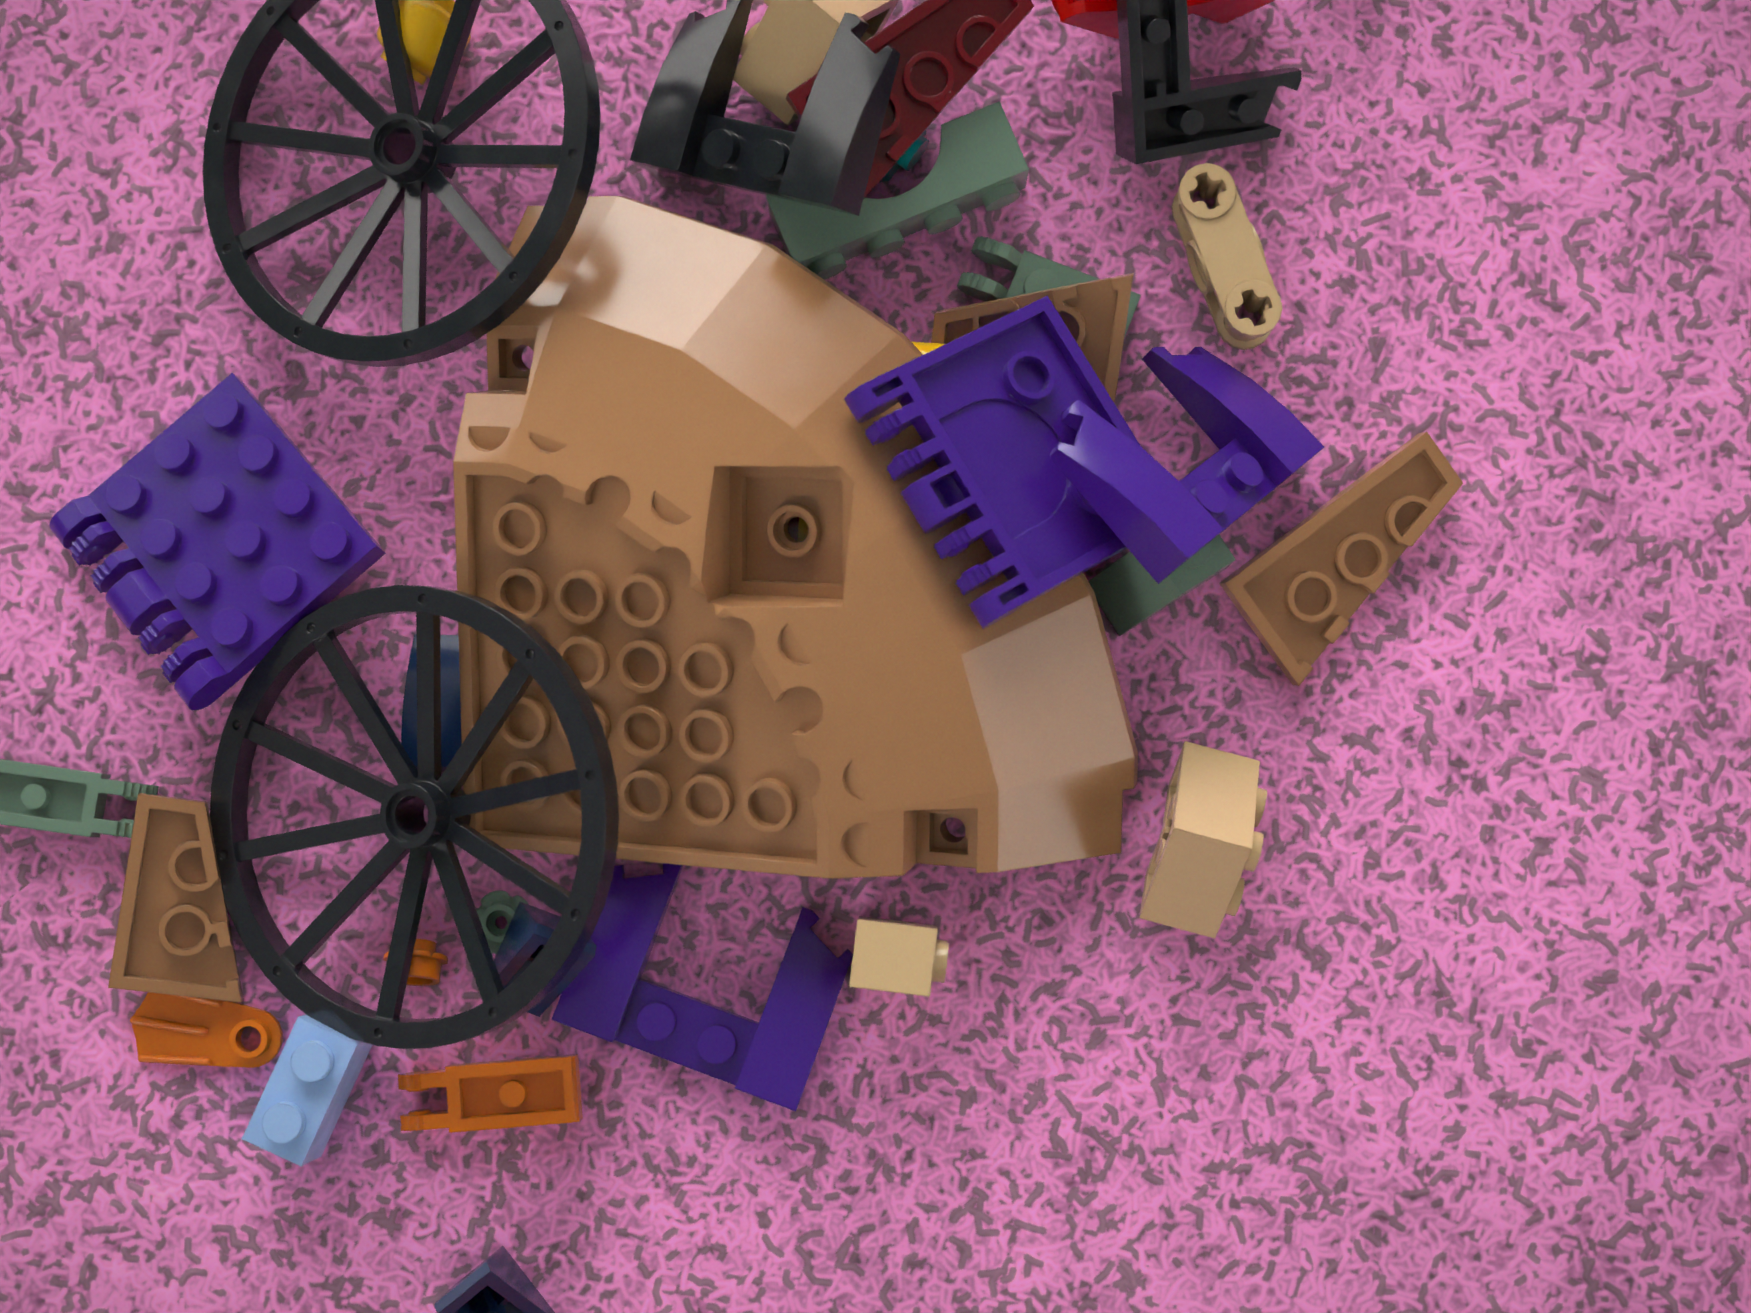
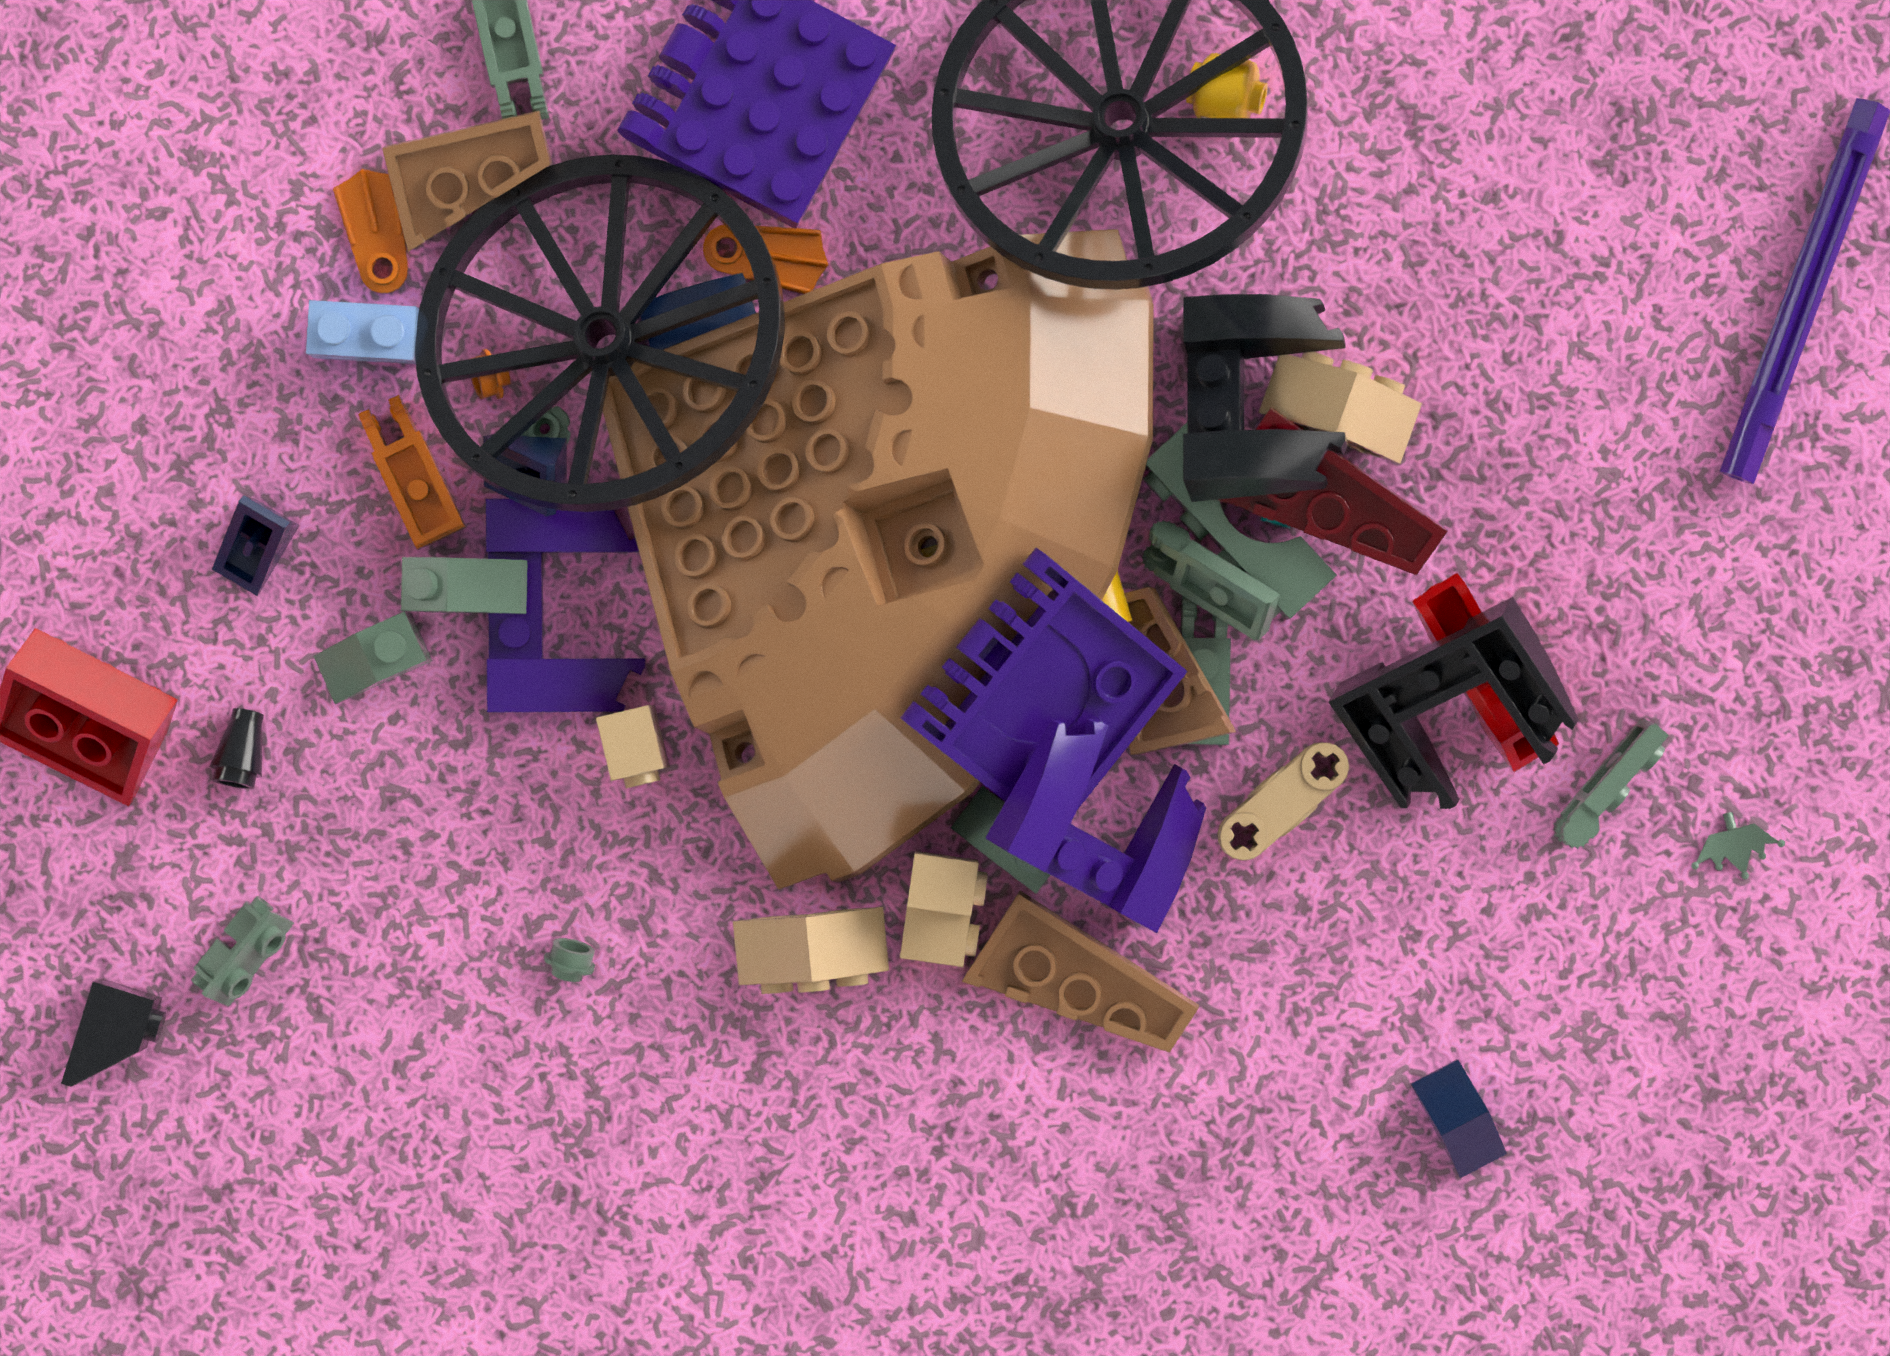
camera: 65 degrees right, 5 degrees up
(416, 563) = (795, 252): none -> orange piece
(639, 1083) = (463, 585): none -> sand green slope
(682, 1218) = (372, 657): none -> sand green slope
(953, 241) = (1210, 580): none -> sand green hinge
(1114, 1121) = (570, 959): none -> sand green plate
(1209, 677) = (941, 908): none -> tan brick
(1643, 196) = (1459, 1118): none -> dark blue slope

